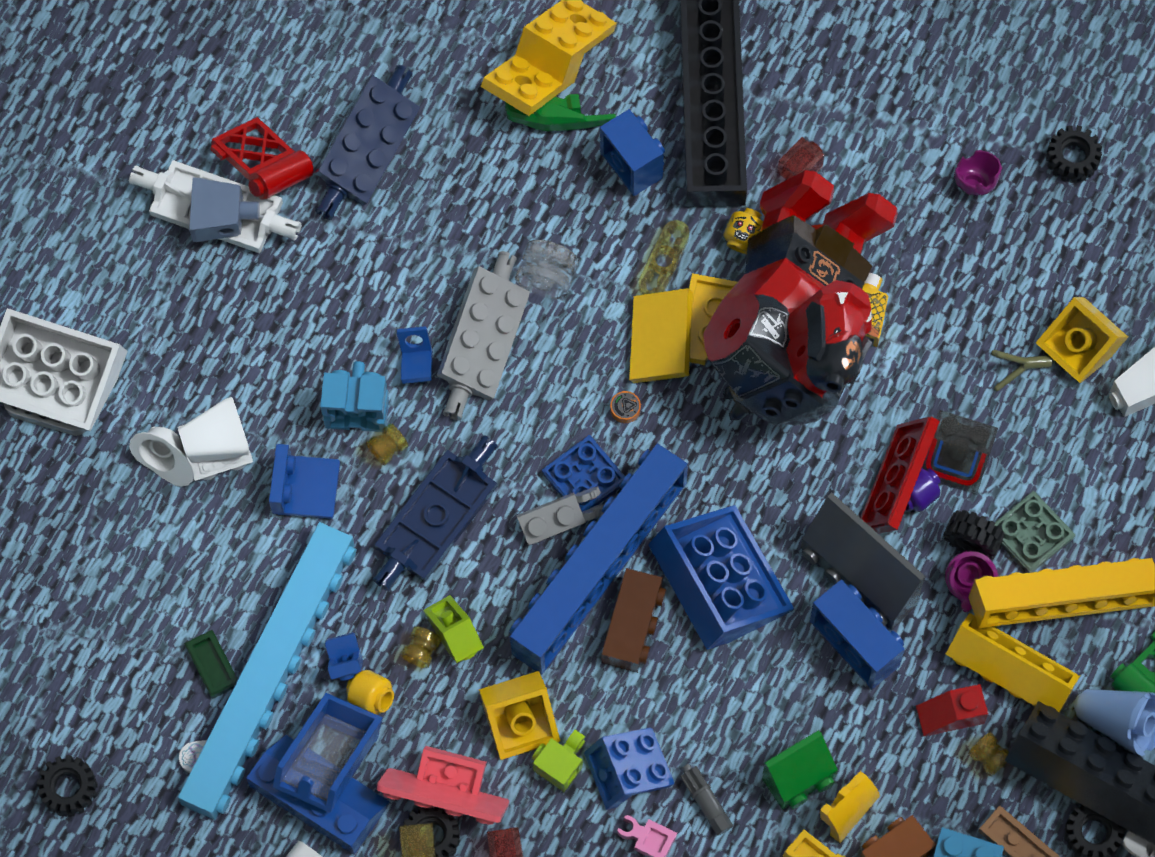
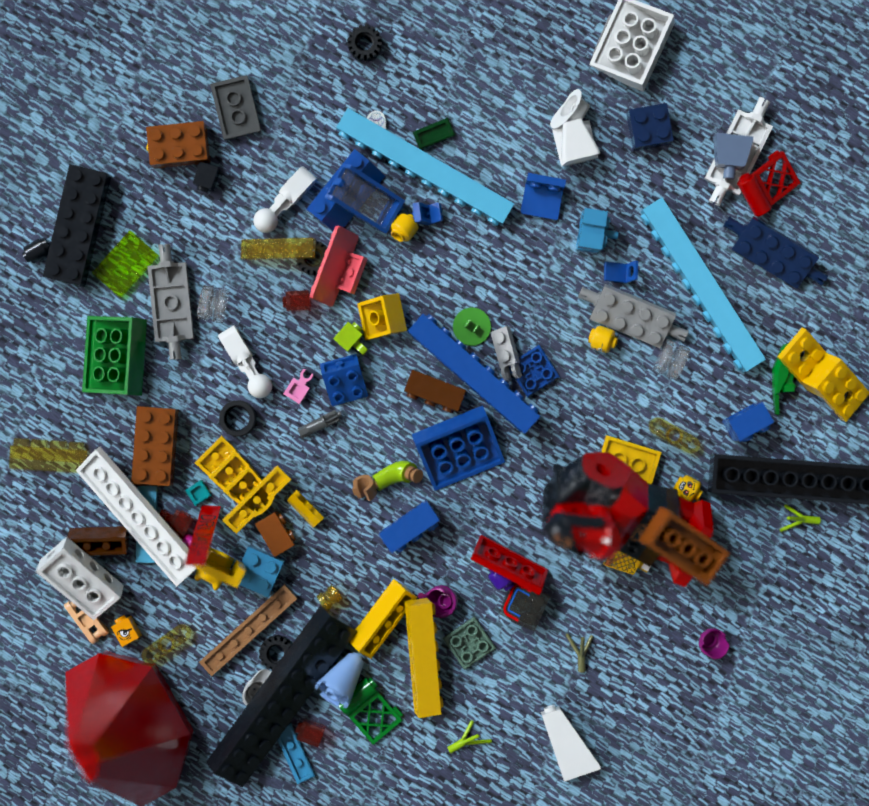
camera: 90 degrees right, 20 degrees up
(183, 335) = (649, 127): none -> dark blue brick
(385, 445) = (563, 248): clear yellow wheel -> none
(420, 647) = (434, 262): clear yellow wheel -> none
(425, 239) = (702, 285): none -> medium azure brick
(436, 515) = (514, 276): dark blue plate -> none
(454, 629) = (440, 281): lime slope -> none
(520, 575) = (471, 326): none -> bright green piece
(524, 374) = (602, 339): none -> yellow head
(625, 407) = (576, 400): tile -> none
(661, 336) = (620, 427): yellow tile -> none
(770, 664) = (397, 472): none -> piece
(772, 72) = (800, 519): none -> lime plant
(800, 771) = (327, 481): green slope -> none
(801, 157) = (732, 531): clear red brick -> none
(835, 200) = (684, 546): none -> dark orange brick
(862, 558) = (452, 534): dark grey slope -> none
(953, 711) = (358, 578): red slope -> none
(973, 533) = (467, 606): black tyre -> none
(1070, 169) = (727, 718): black tyre -> none
(1081, 339) = (592, 693): yellow slope -> none

